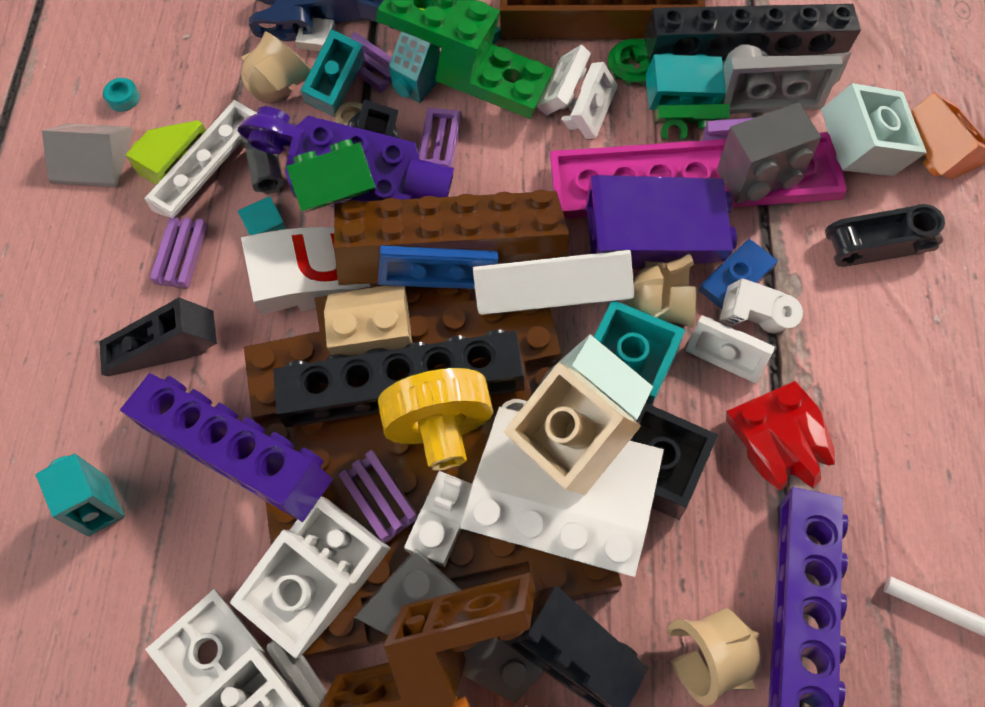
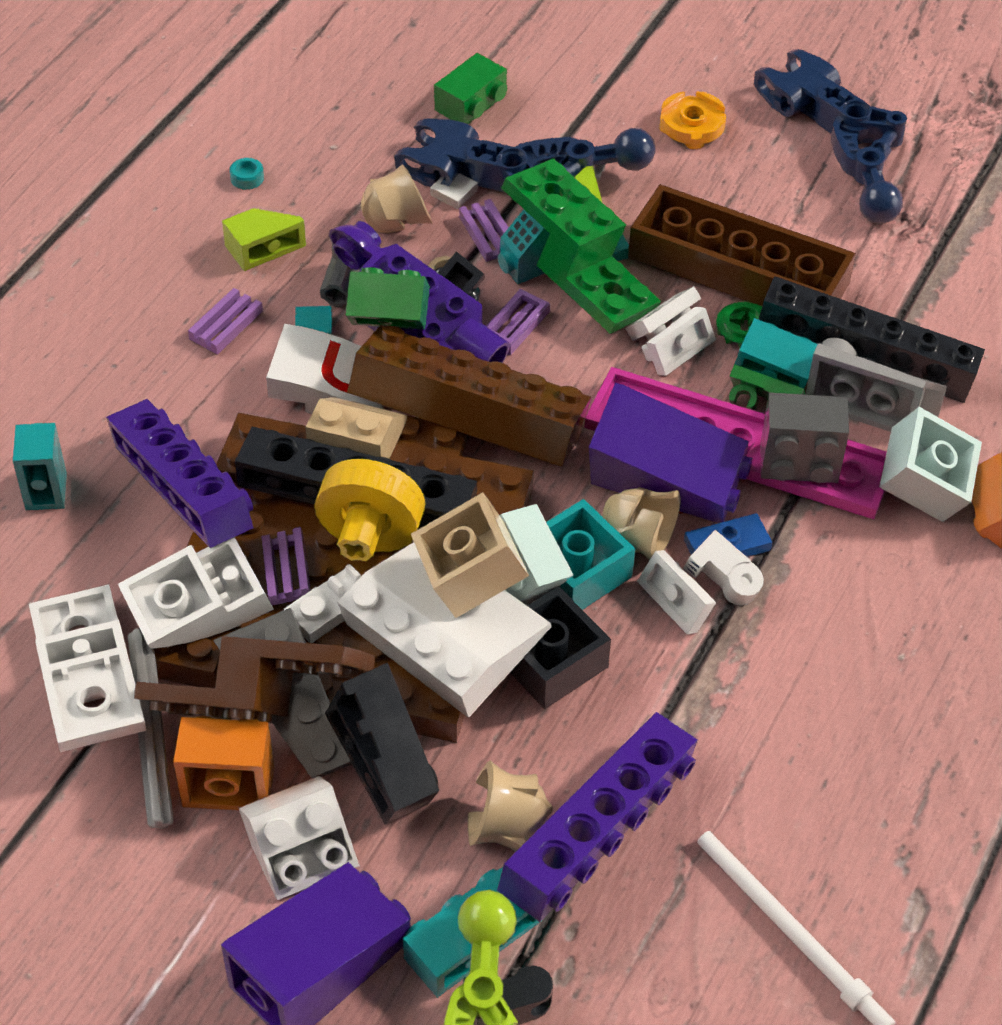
camera: 20 degrees right, 15 degrees down
(86, 154) = (188, 210): light grey slope -> none
(158, 338) = (173, 379): black slope -> none
(199, 162) = (280, 254): white slope -> none
(333, 73) = (446, 224): teal brick -> none
(431, 266) = (440, 410): blue tile -> none
(554, 282) = (538, 462): white slope -> none
(784, 435) = (683, 680): red plate -> none
(886, 234) = (891, 561): black piece -> none

